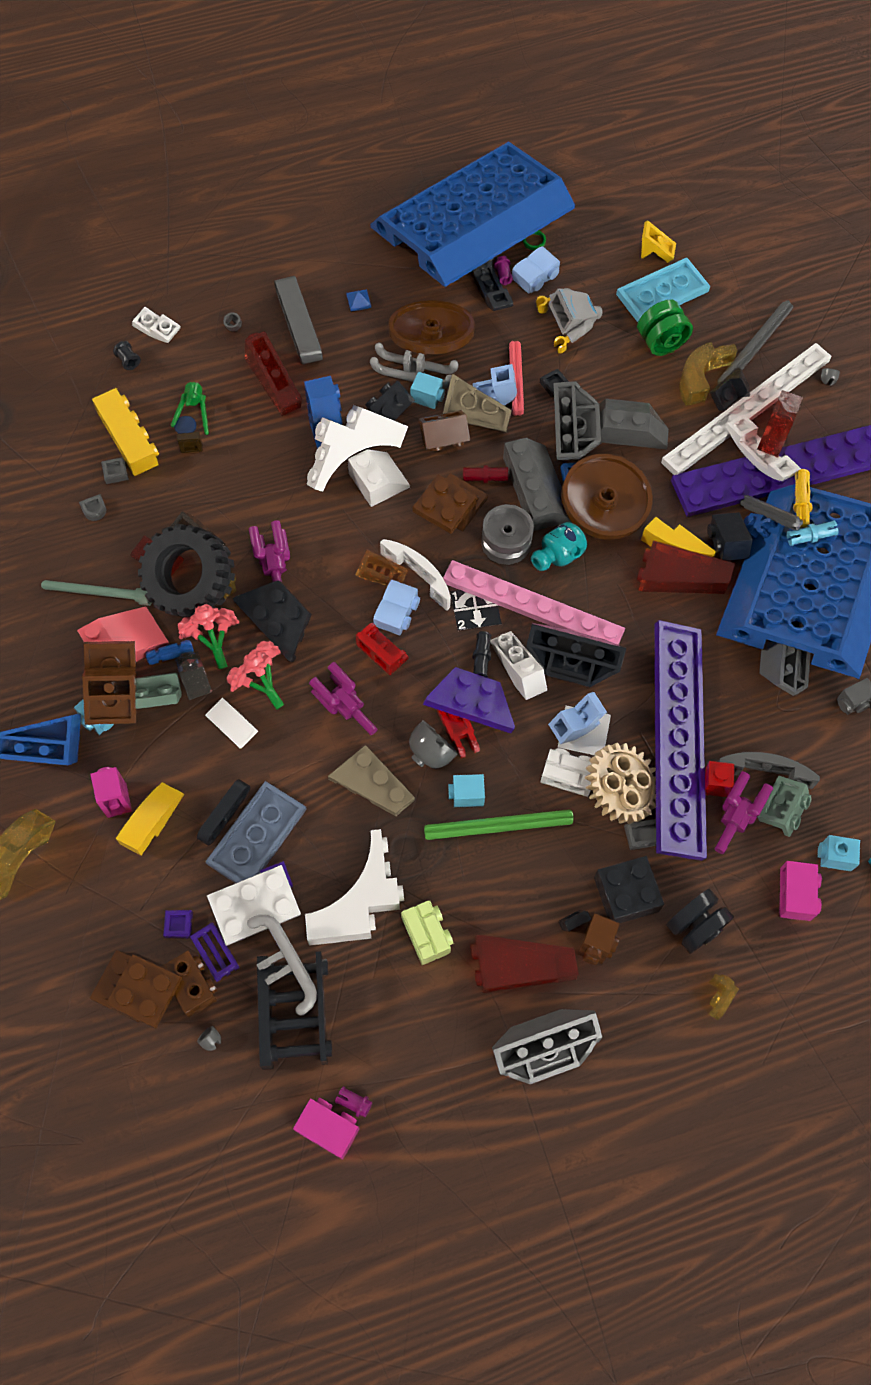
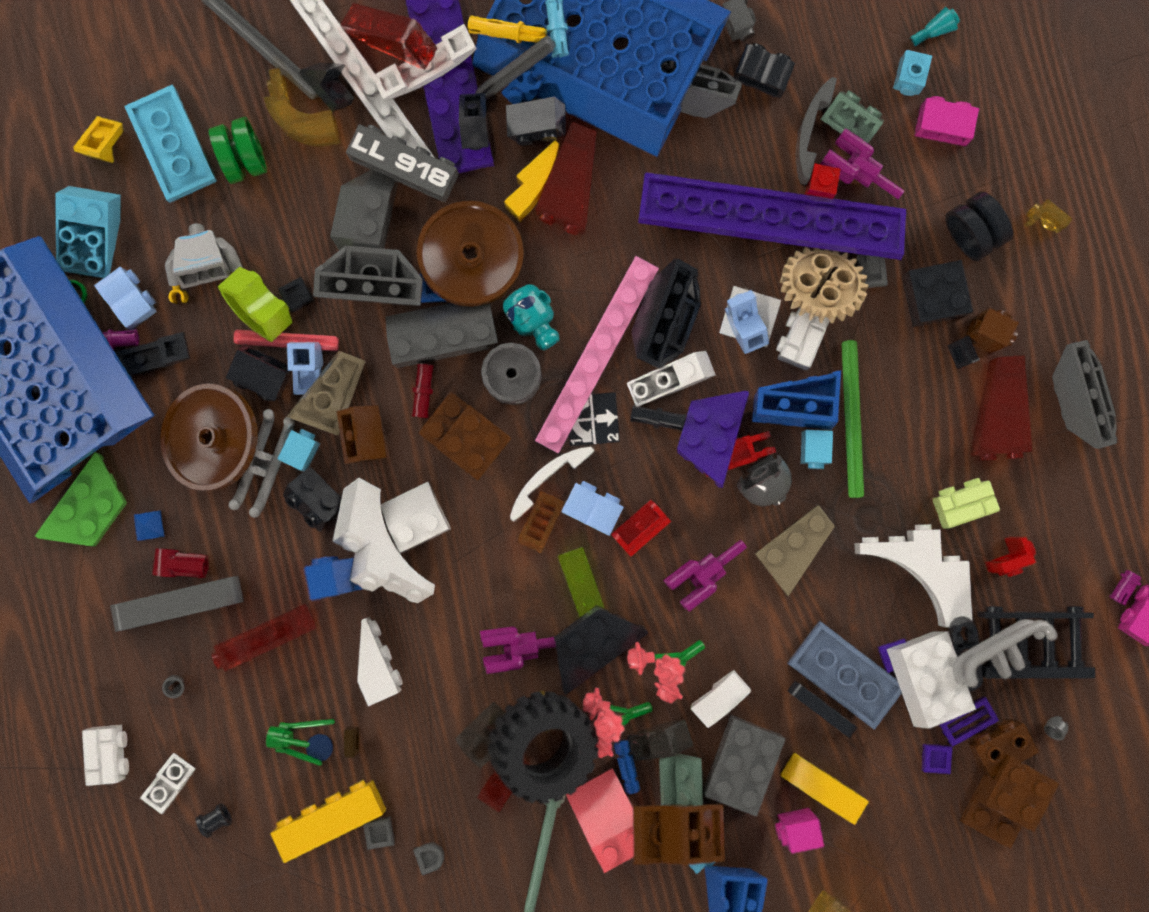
camera: 80 degrees left, 20 degrees up
(171, 744) = (743, 765): none -> dark grey brick
(178, 282) = (104, 755): none -> white brick
(249, 455) = (374, 669): none -> white slope
(294, 937) = (959, 644): none -> black beam
(329, 319) = (173, 564): none -> dark red piece
(333, 605) = (580, 580): none -> clear neon green tile
(369, 973) = (1020, 555): none -> red bracket
(370, 260) = (86, 507): none -> bright green wing
(487, 353) = (259, 373): none -> black brick
(508, 771) = (800, 403): none -> blue wedge
(542, 349) = (255, 304): none -> lime brick
(586, 241) = (86, 230): none -> medium azure slope
(674, 440) = (402, 163): none -> dark grey brick
(720, 487) = (473, 121): none -> black slope
(815, 722) = (764, 70): none -> black brick

